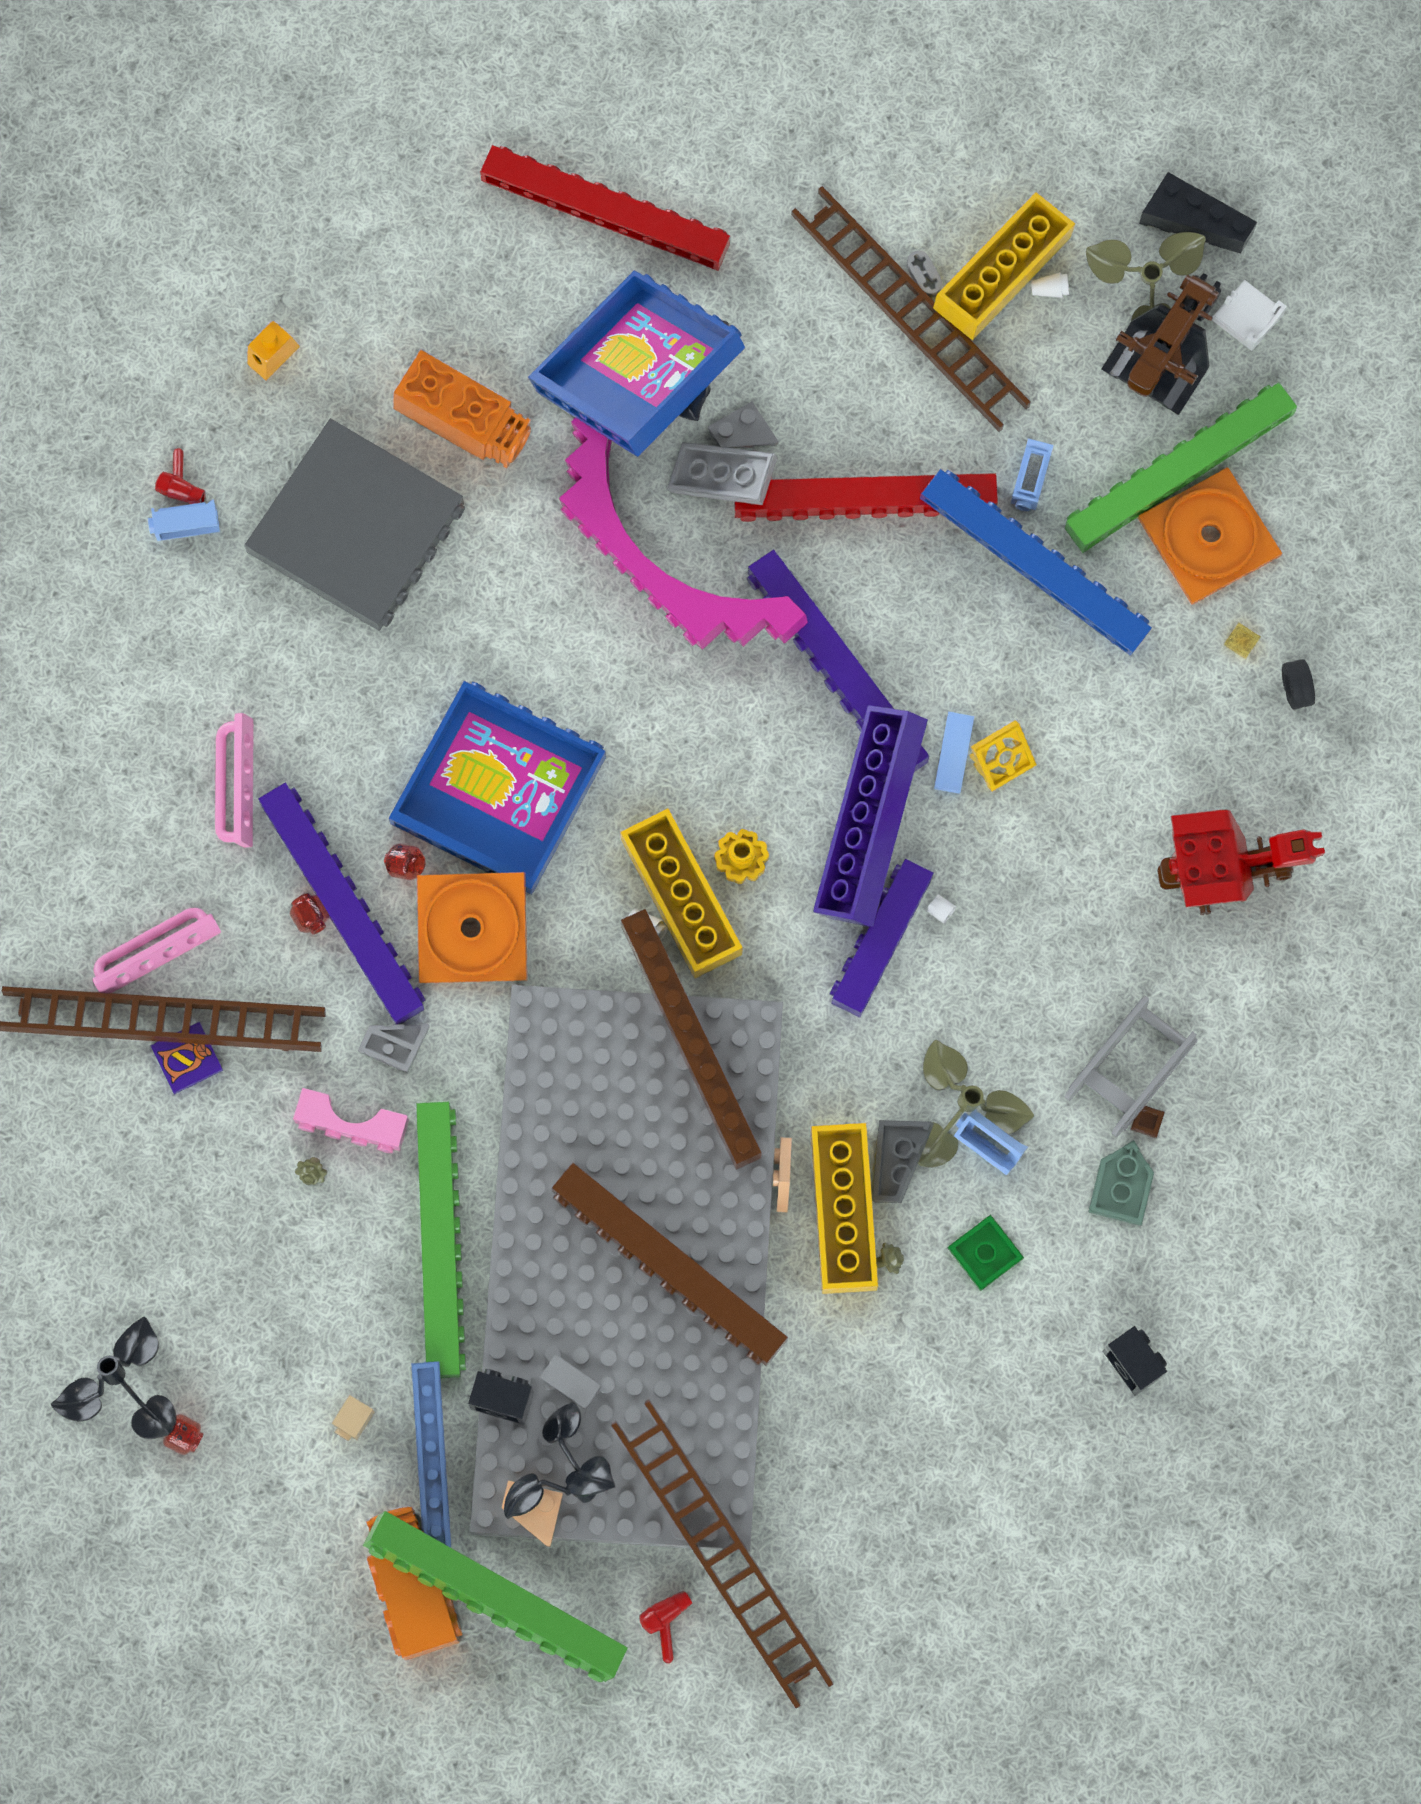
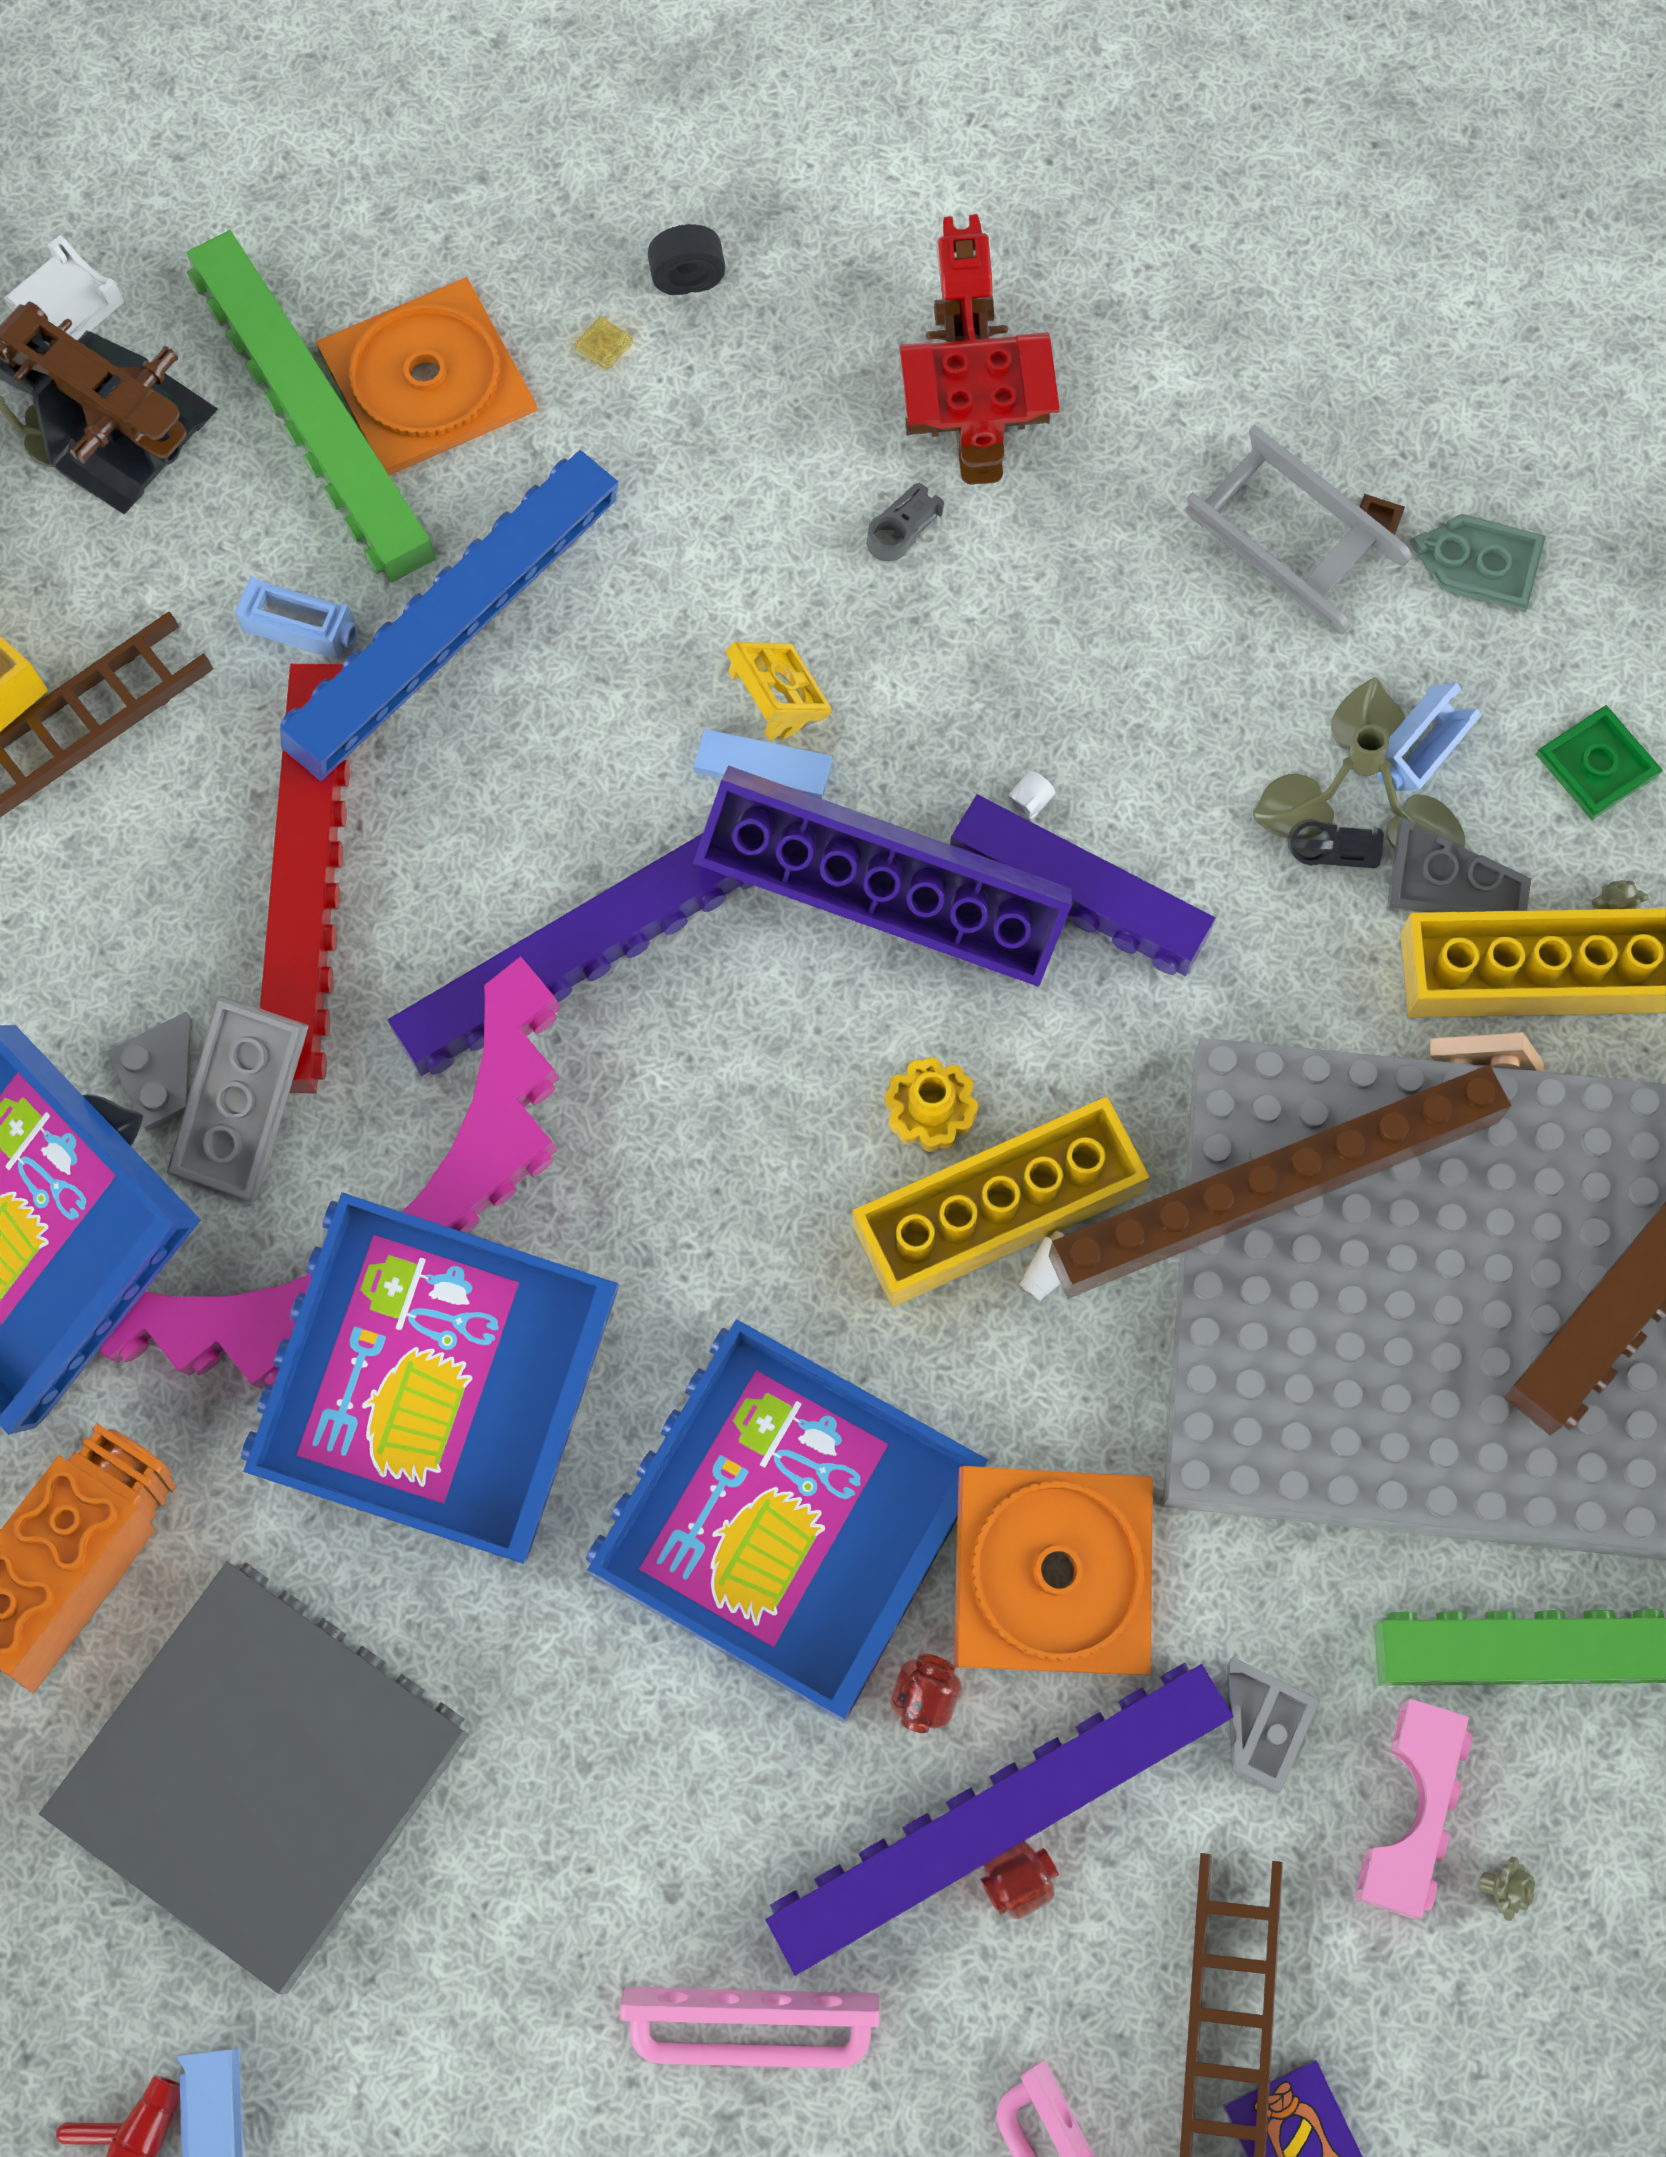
camera: 85 degrees left, 5 degrees down
(565, 590) = (430, 1377): none -> panel
(917, 1094) = (1342, 848): none -> black piece
(1128, 831) = (907, 519): none -> dark grey piece

